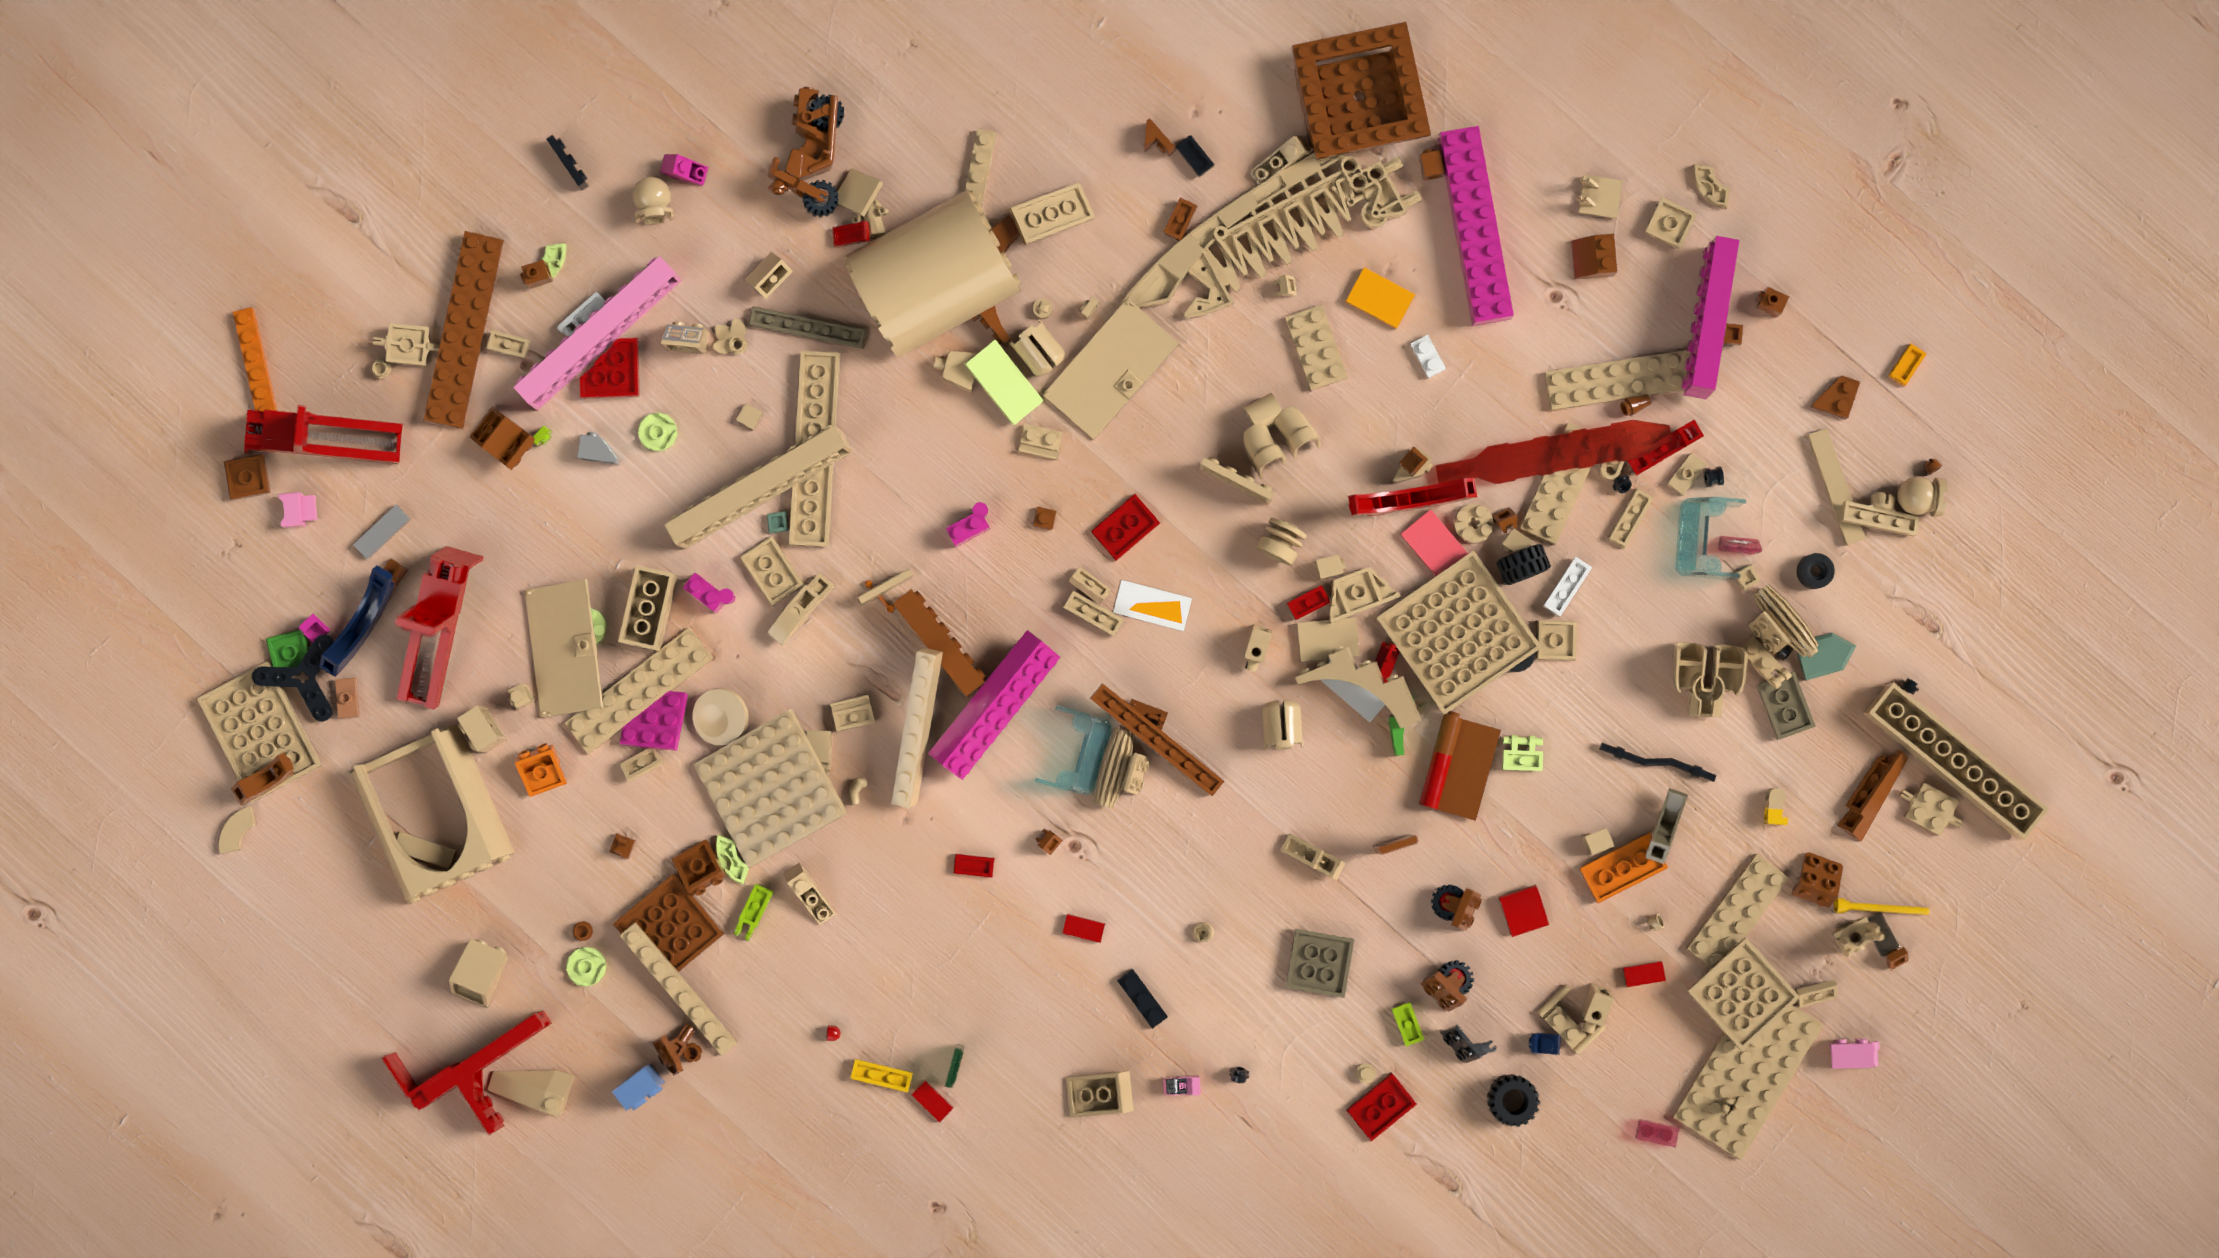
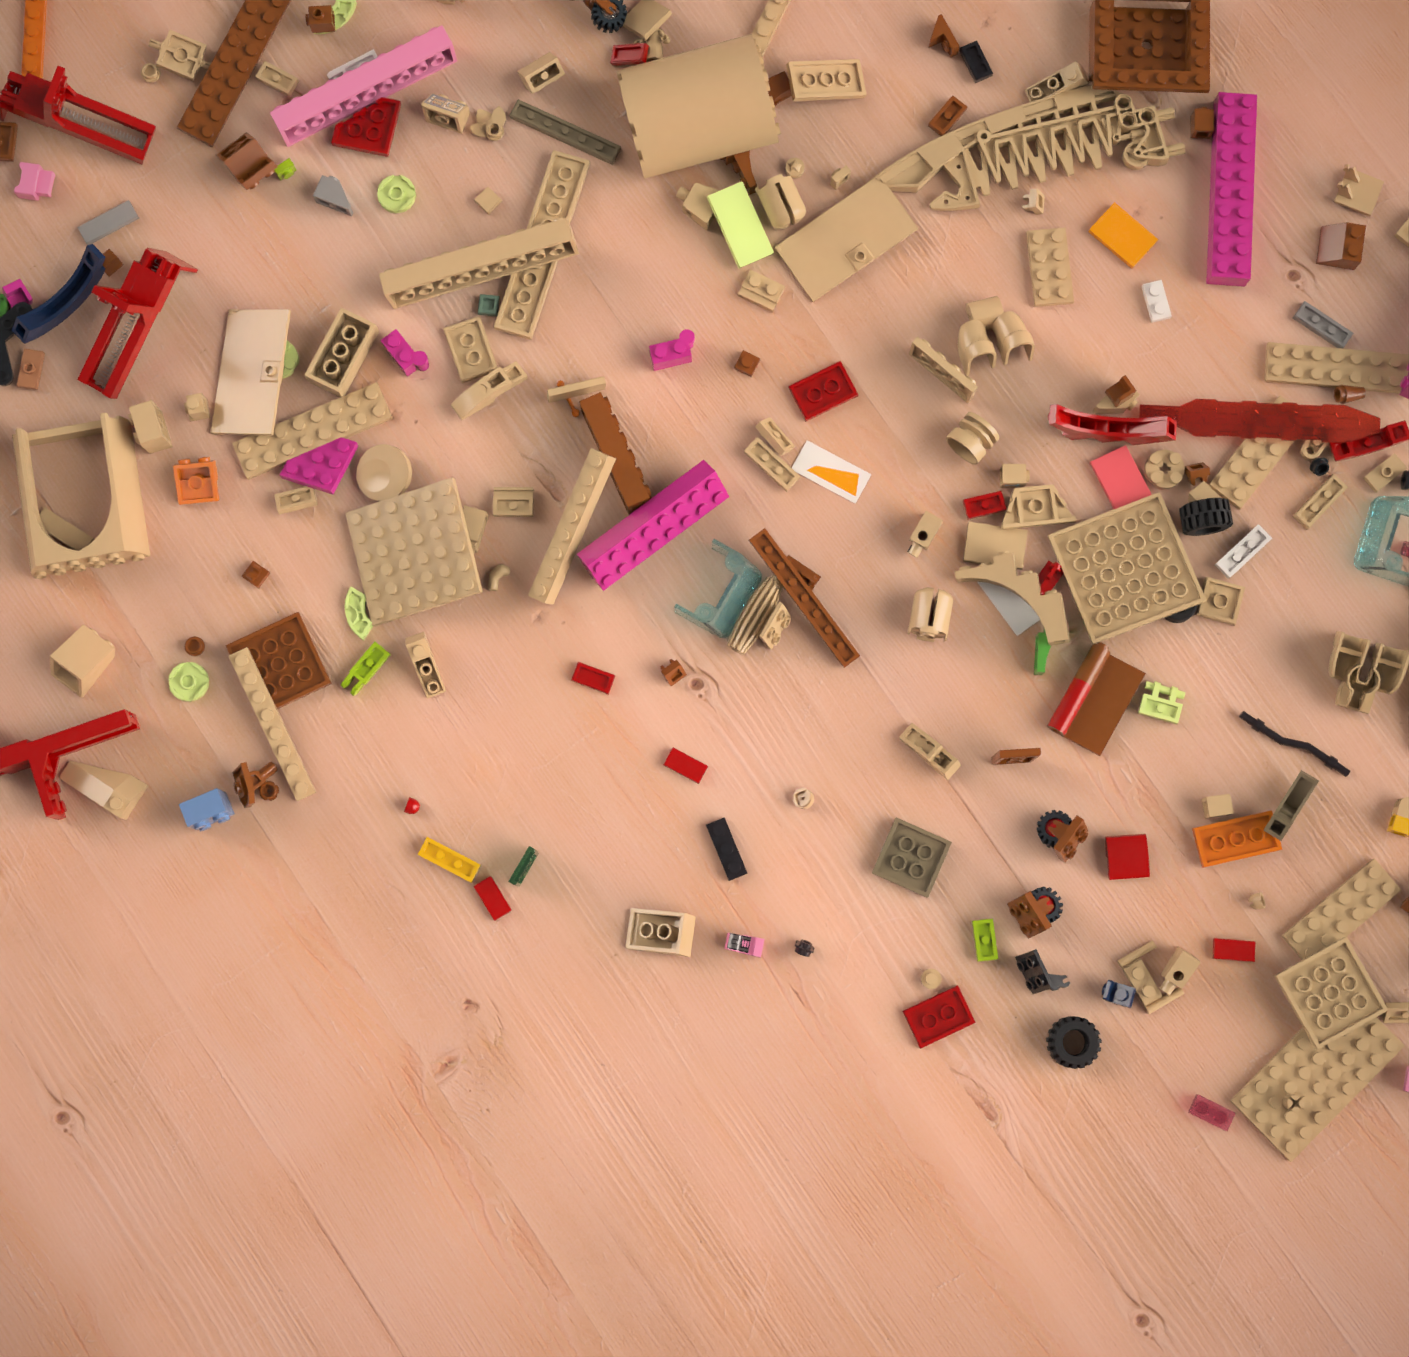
camera: 10 degrees right, 5 degrees down
(699, 868) = (324, 613): dark orange plate -> none
(1594, 341) = (1322, 325): none -> light grey tile

